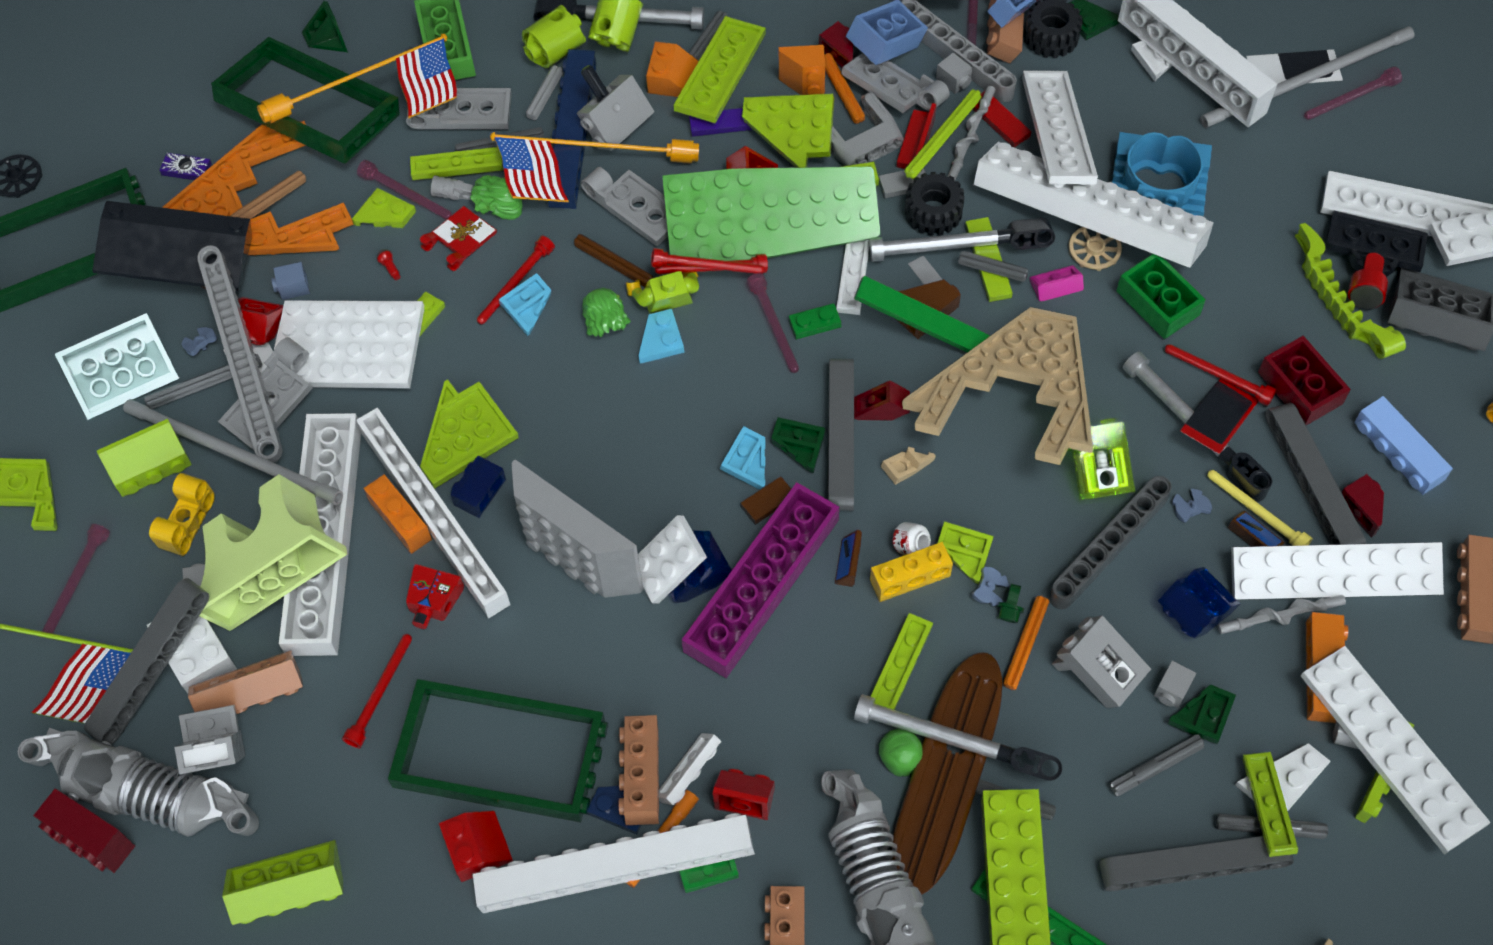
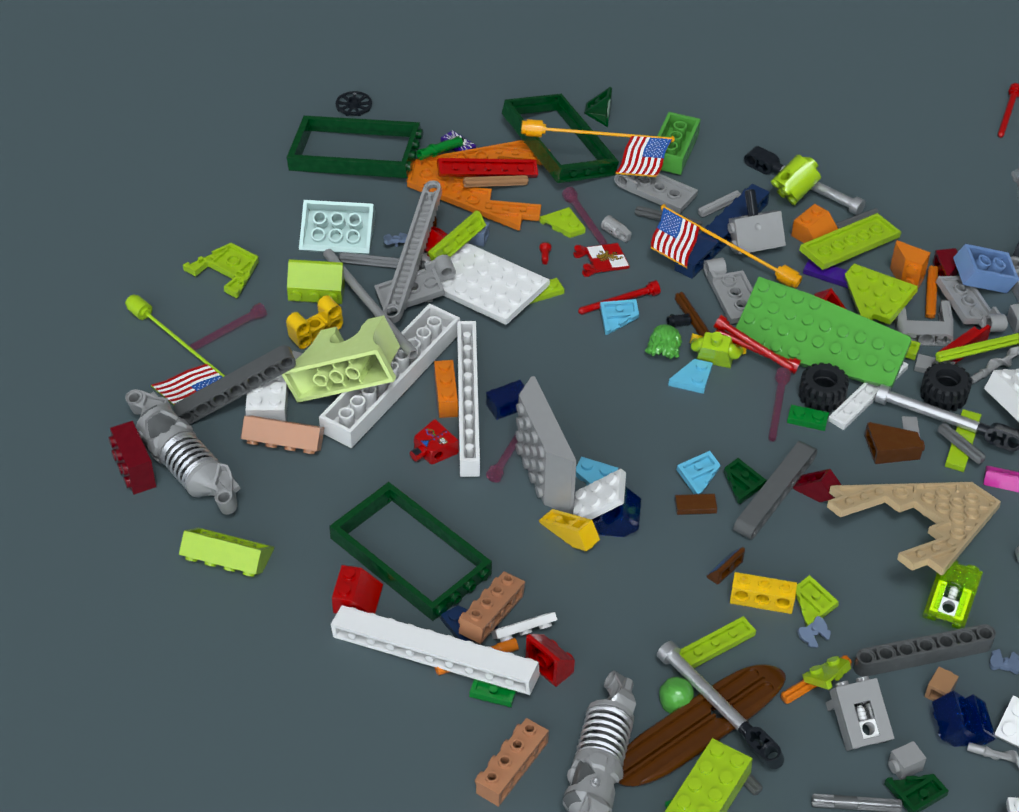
camera: 30 degrees right, 15 degrees down
(166, 195) = (435, 149): none -> green pin
(166, 243) = (409, 167): black slope -> none
(209, 740) = (238, 447): light grey brick -> none
(252, 183) = (486, 167): none -> red plate
(279, 305) = (459, 236): none -> lime tile
(355, 734) = (329, 495): red piece -> none
(456, 163) = (628, 215): lime plate -> none
(462, 429) = (521, 362): lime wing -> none
(493, 195) = (640, 244): bright green hair -> none
(526, 589) = (496, 472): none -> clear pink piece
(552, 37) = (746, 170): lime cylinder -> none
(595, 276) = (678, 320): none -> black pin
(637, 524) = (591, 470): none -> medium azure wing
(656, 613) = (573, 529): none -> yellow slope
(760, 580) = (654, 543): magenta brick -> none
(810, 291) = (823, 387): none -> black tyre
(906, 464) = (809, 532): tan slope -> none
(910, 538) = (778, 570): white head -> none
(918, 315) = (880, 441): green tile -> none
(1010, 611) = (820, 653): dark green piece -> none
(1041, 633) = (823, 674): none -> lime wing
(1153, 574) = (941, 684): none -> medium nougat brick

